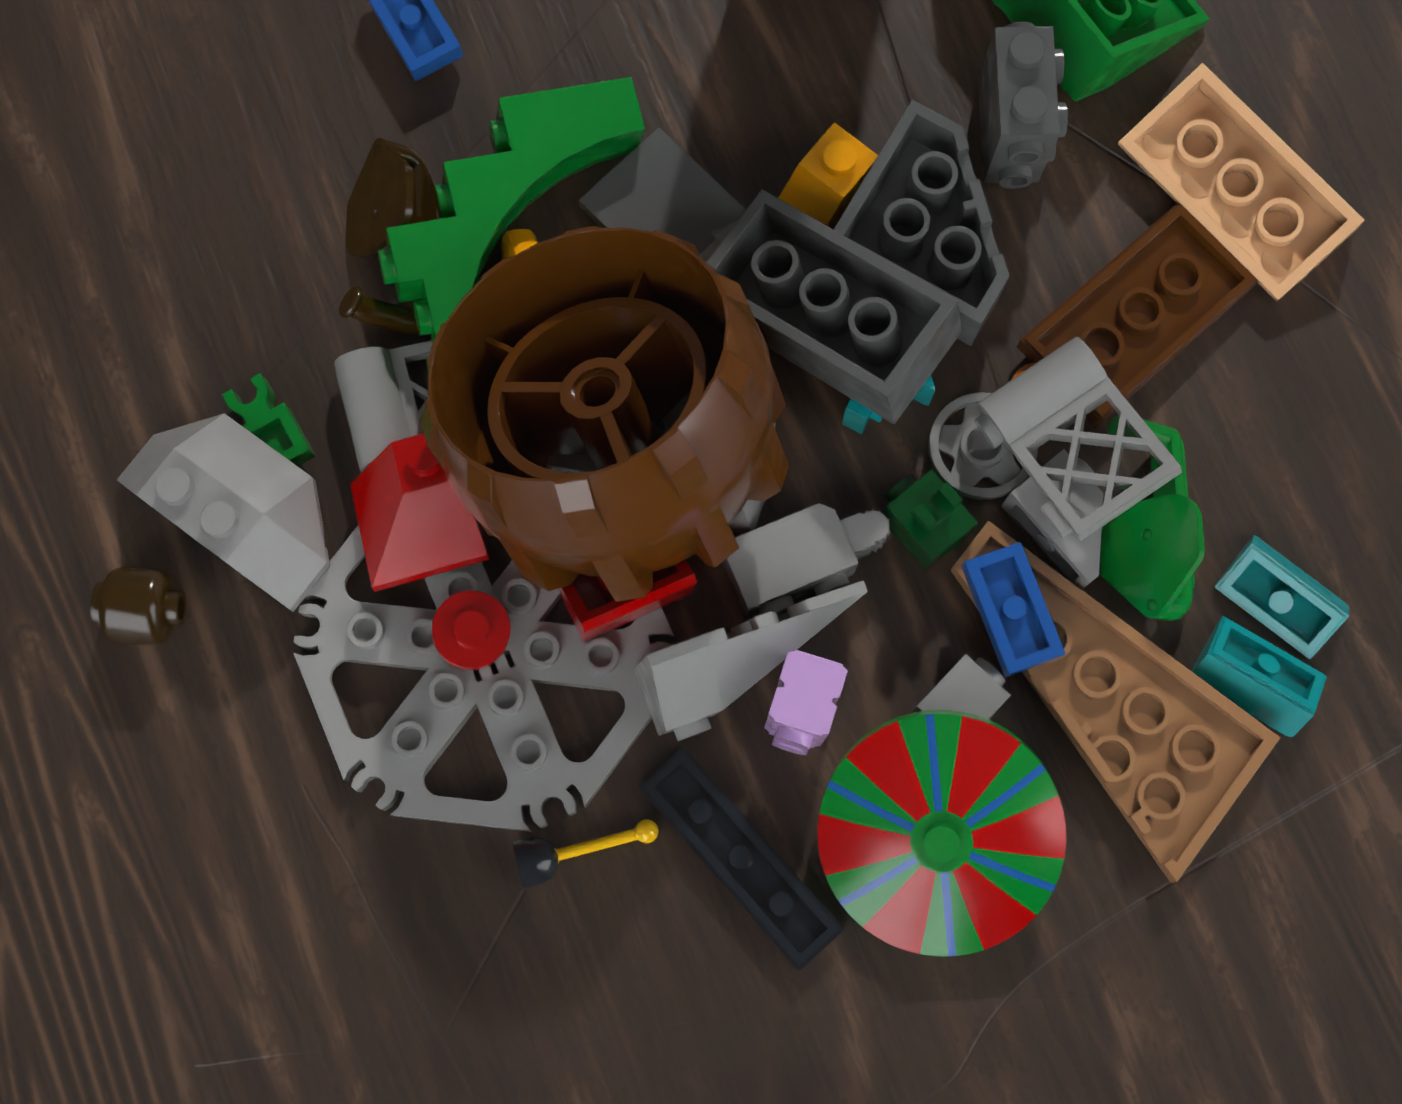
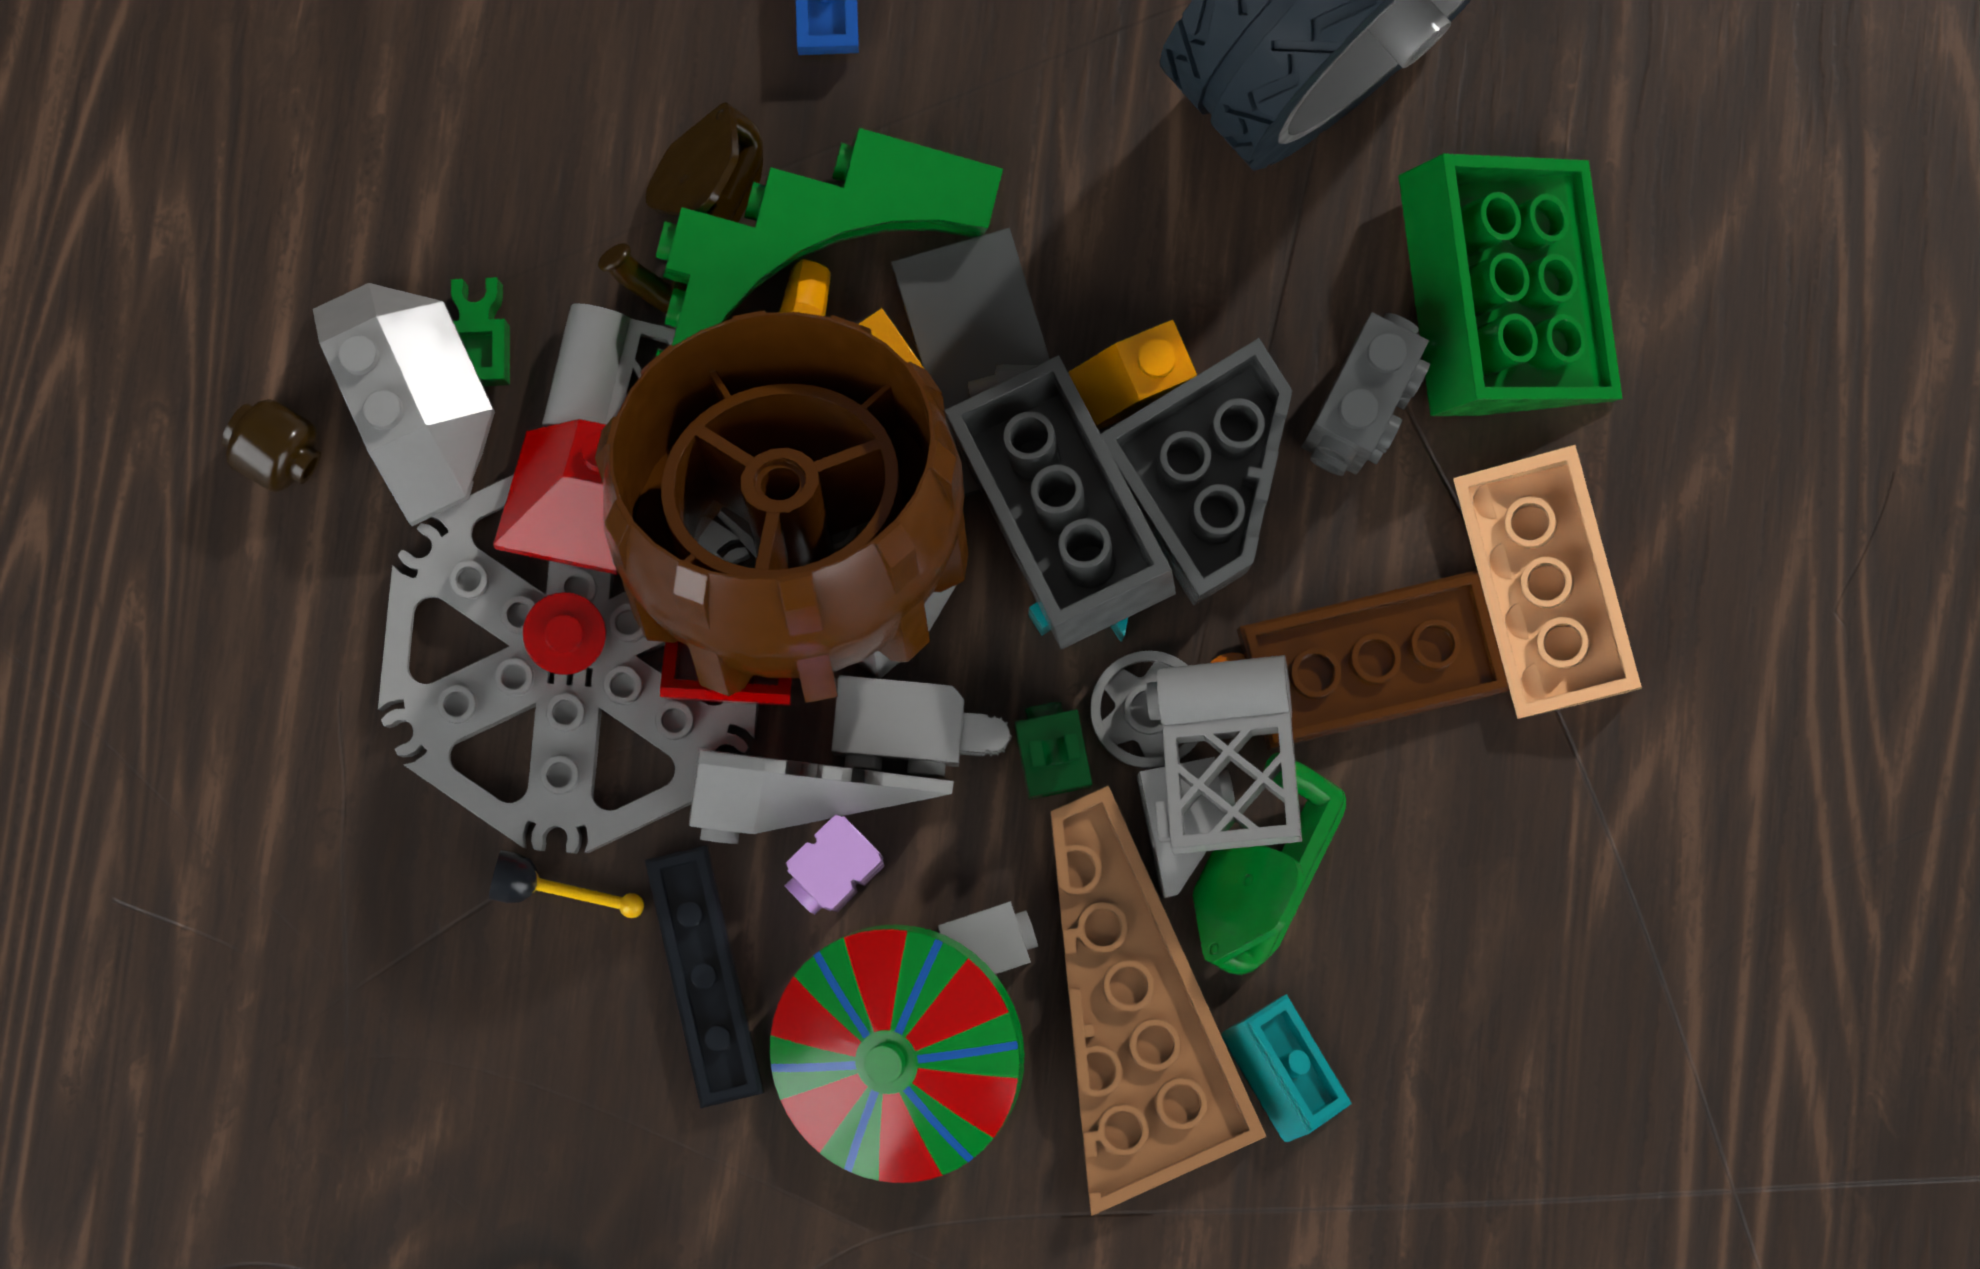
camera: 25 degrees right, 5 degrees up
(1013, 609) = (1078, 883): blue plate -> none
(1283, 597) = (1355, 1006): teal slope -> none

